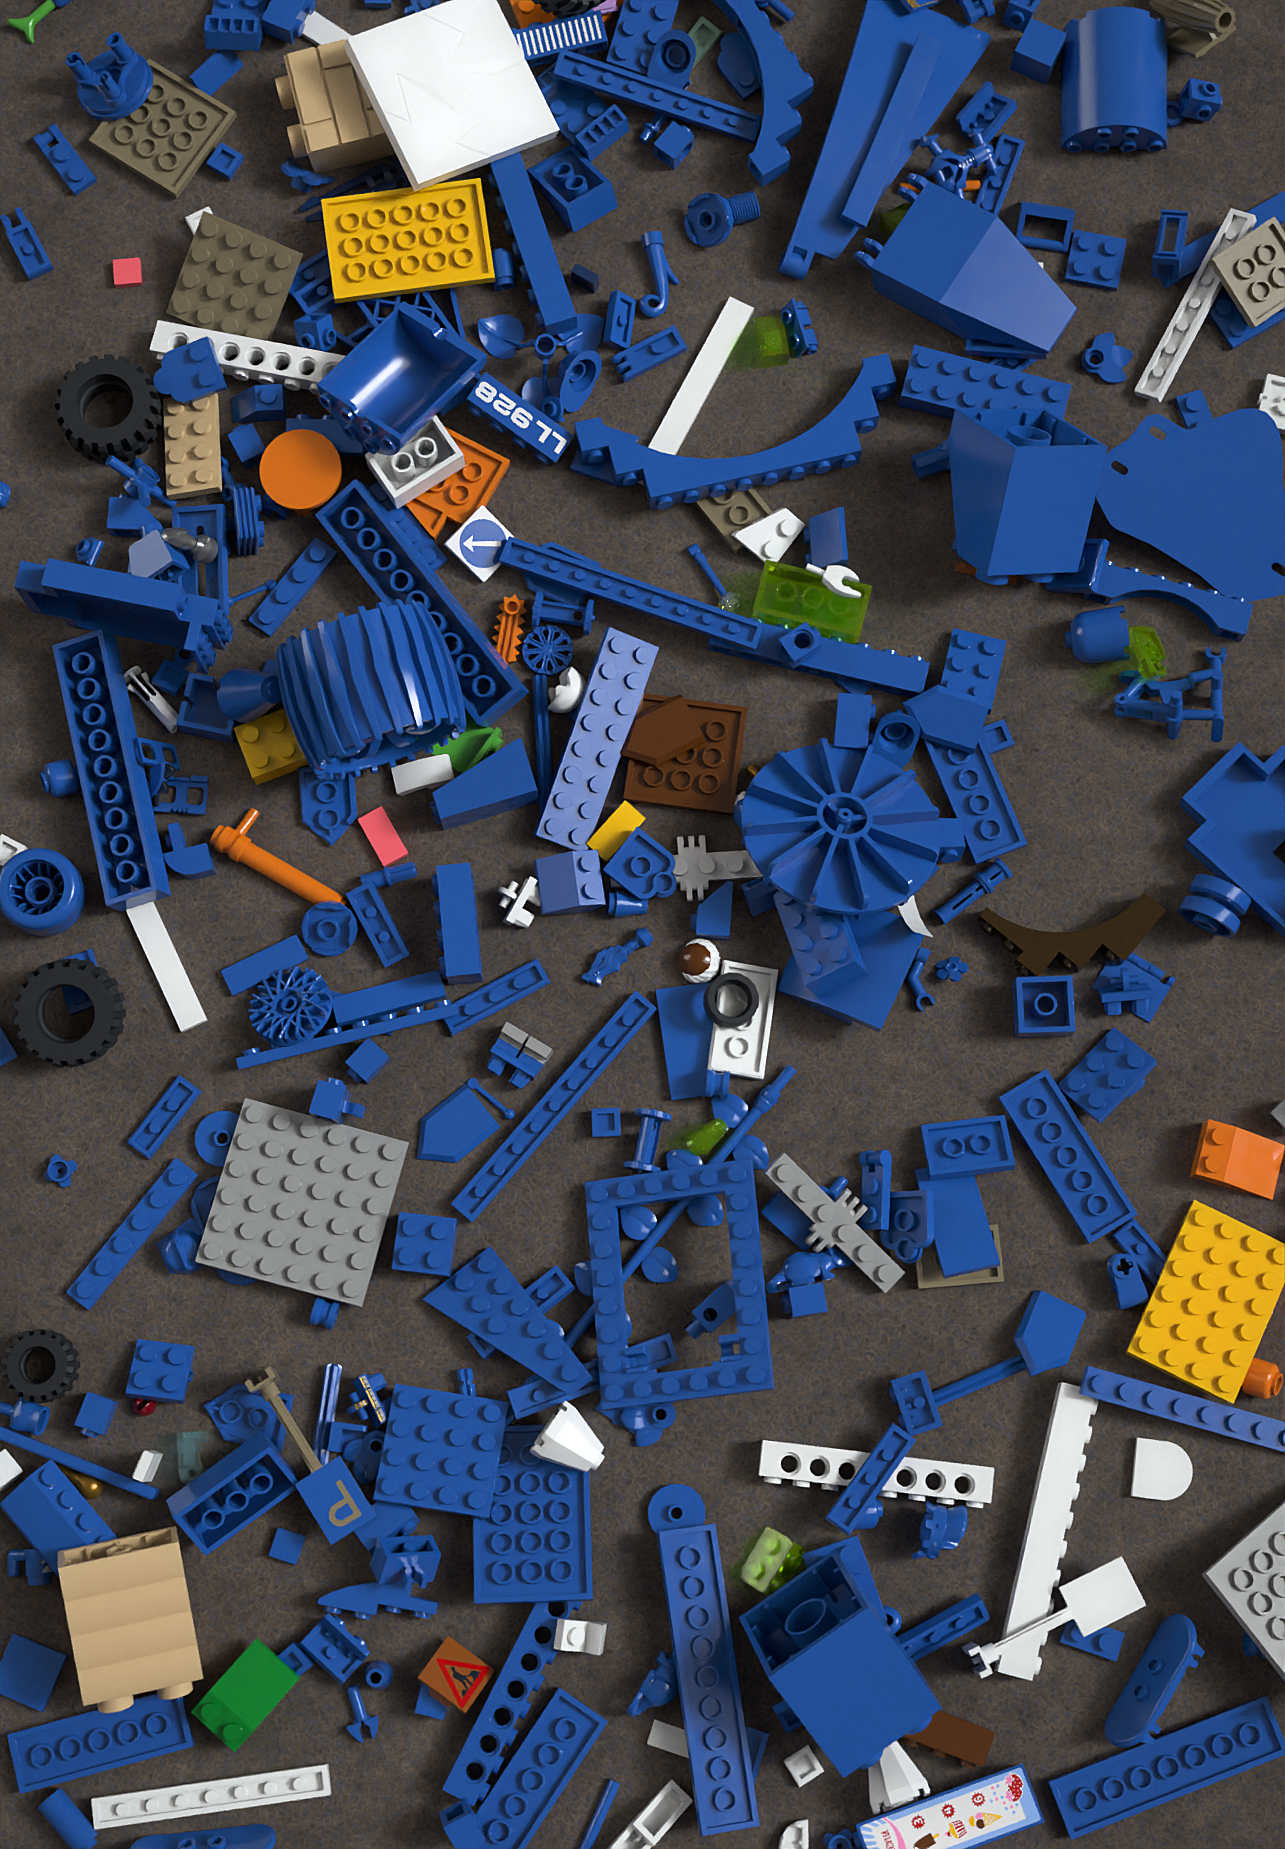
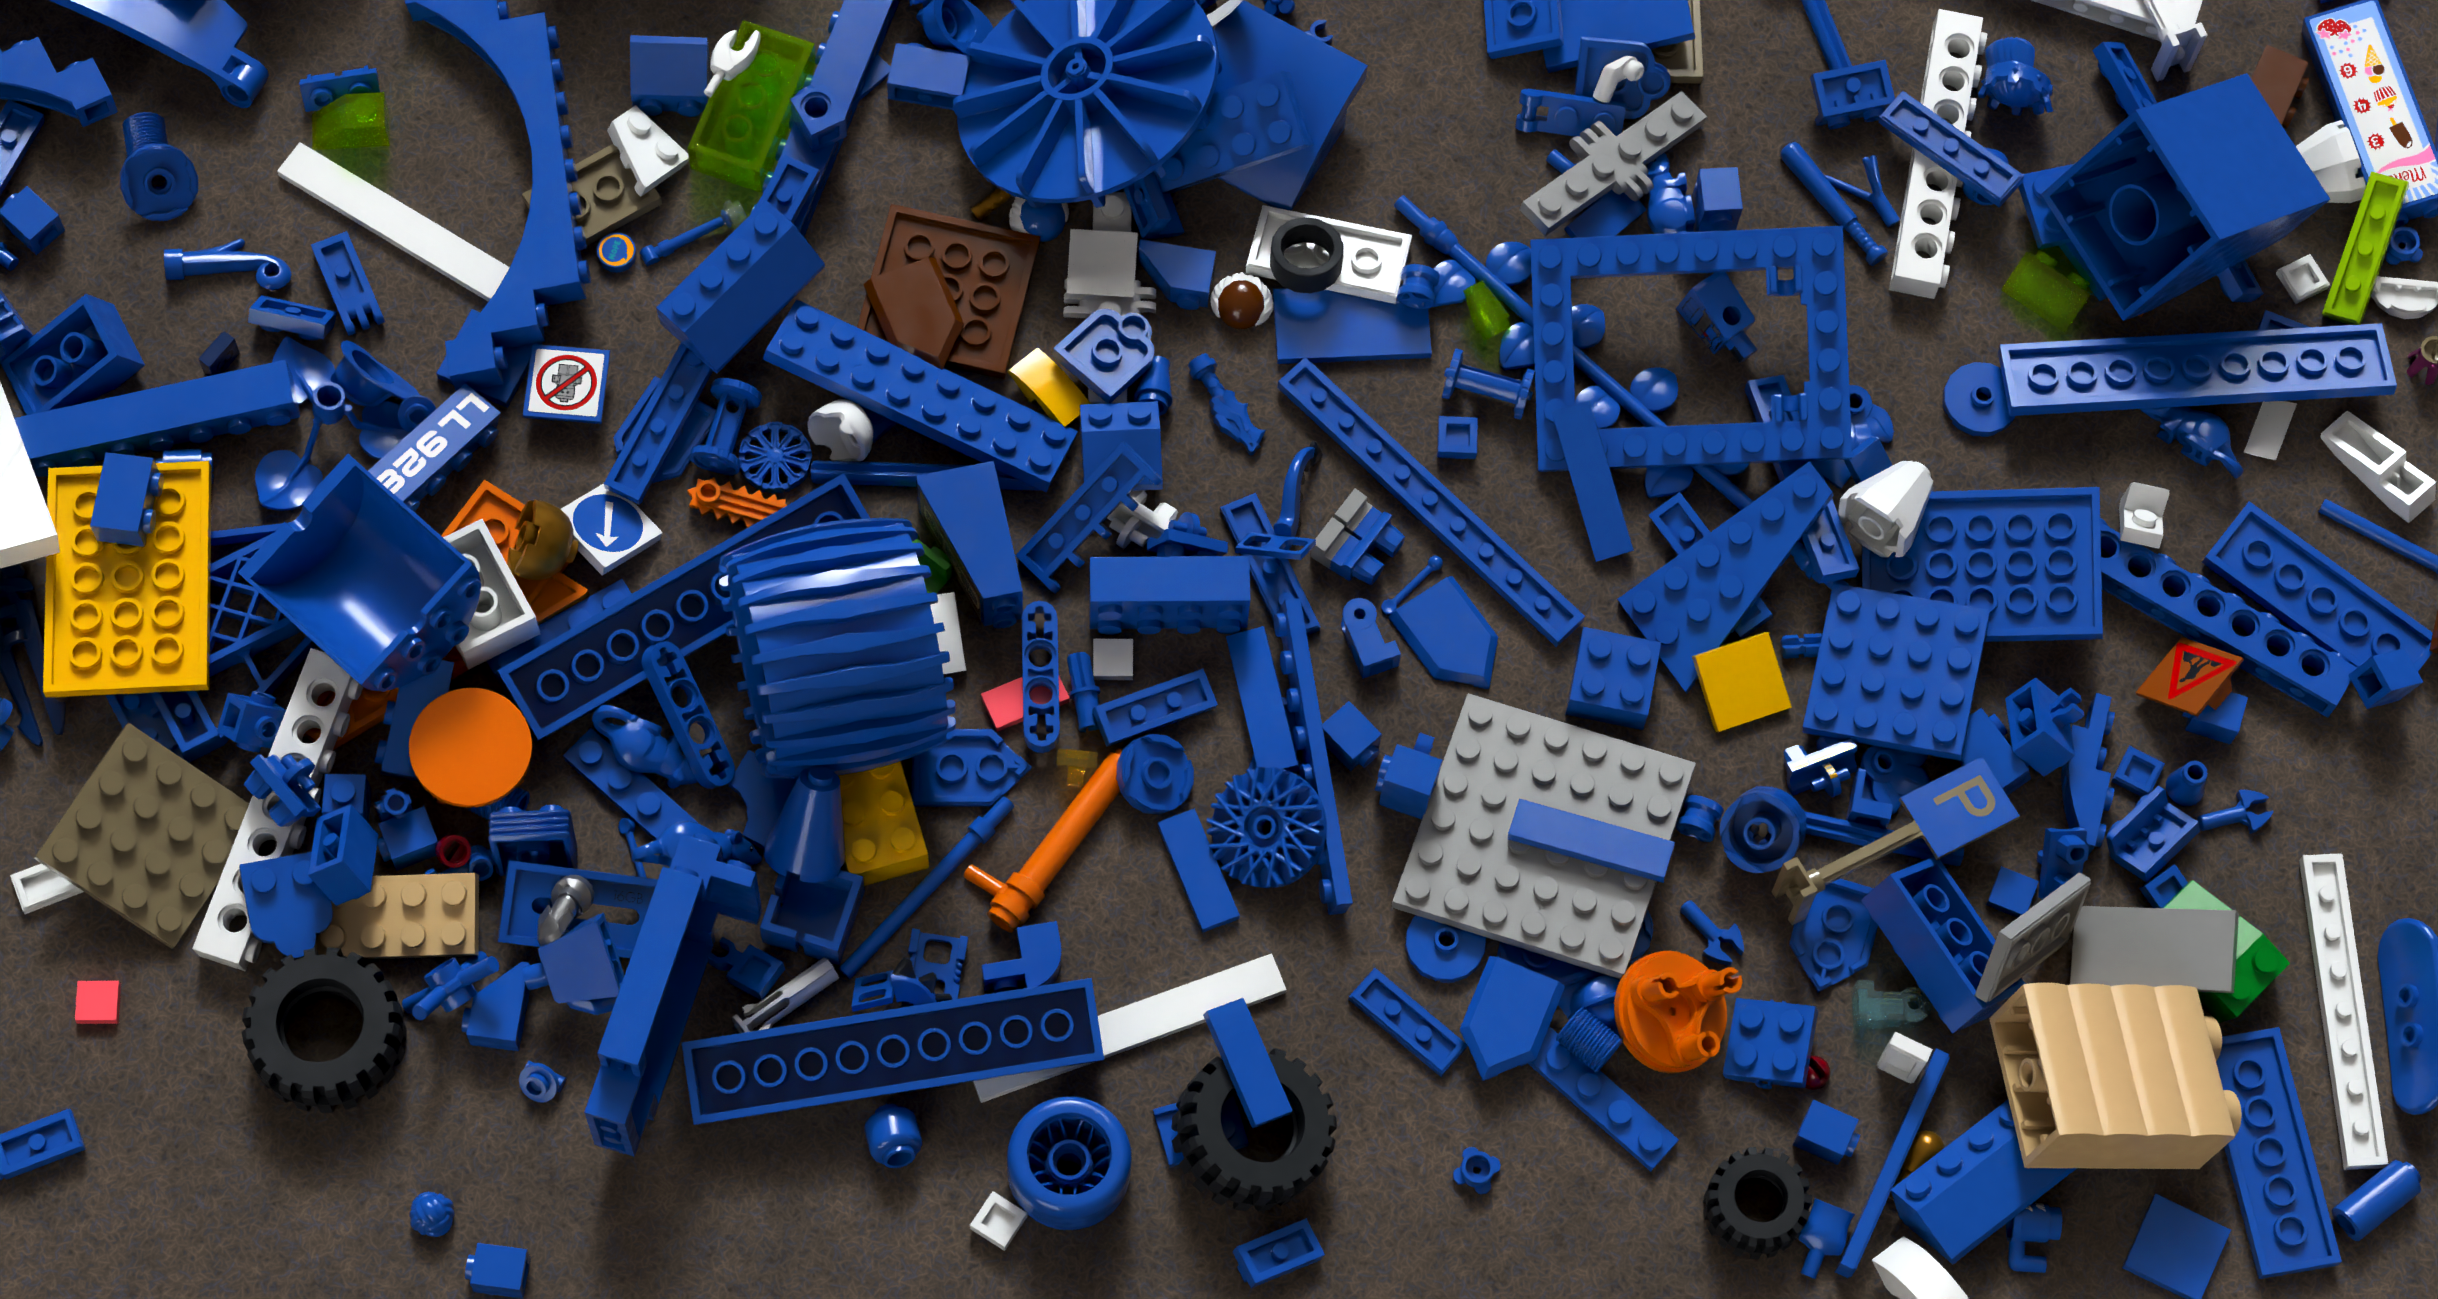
camera: 90 degrees left, 10 degrees down
(100, 998) = (1247, 1062): none -> blue tile
(150, 1240) = (1589, 1039): none -> blue piece
(165, 1184) = (1508, 1016): none -> blue tile
(175, 1298) = (1673, 1010): none -> orange piece
(220, 400) = (343, 855): none -> blue brick
(231, 1554) = (2033, 937): none -> light grey tile
(233, 476) = (458, 856): none -> dark red hinge
(239, 1649) = (2155, 947): none -> light grey tile
(243, 1327) = (1713, 934): none -> blue bar
(252, 626) = (732, 843): none -> blue animal
(261, 356) = (290, 783): none -> blue hips
(266, 430) = (393, 805): none -> blue bar
(281, 815) = (979, 832): none -> blue bar
(291, 1232) = (1591, 840): none -> blue tile
(303, 1581) = (2061, 857): none -> blue hips
(312, 1357) = (1741, 827): none -> blue brick
(319, 585) = (642, 748): none -> blue animal
(335, 875) = (1077, 761): none -> clear yellow tile
(338, 604) = (694, 712): none -> blue beam
(387, 1639) = (2137, 772): none -> blue tile
(394, 839) = (1040, 676): none -> blue beam
(416, 894) = (1113, 659): none -> white tile
(431, 1339) = (1741, 681): none -> yellow tile
(442, 1066) = (1365, 639): none -> blue leg
(455, 226) = (126, 499): none -> blue brick
(456, 499) = (542, 542): none -> pearl gold cylinder
(493, 923) = (1186, 539): none -> blue hips
(514, 862) = (1085, 514): none -> blue hinge
(529, 1006) = (1285, 529): none -> blue piece
(574, 1220) = (1592, 480): none -> blue tile
(583, 503) = (566, 384): none -> piece
(613, 1427) = (1868, 460): none -> blue tile
(654, 604) = (740, 287): none -> blue slope
(693, 527) = (616, 252): none -> blue tile
(714, 858) = (1102, 263): none -> white sticker
(826, 1814) = (2365, 249): none -> lime tile
(833, 1388) = (1819, 186): none -> blue piece
(840, 1426) = (1877, 198): none -> blue plant
(901, 1214) = (1614, 72): none -> white arm

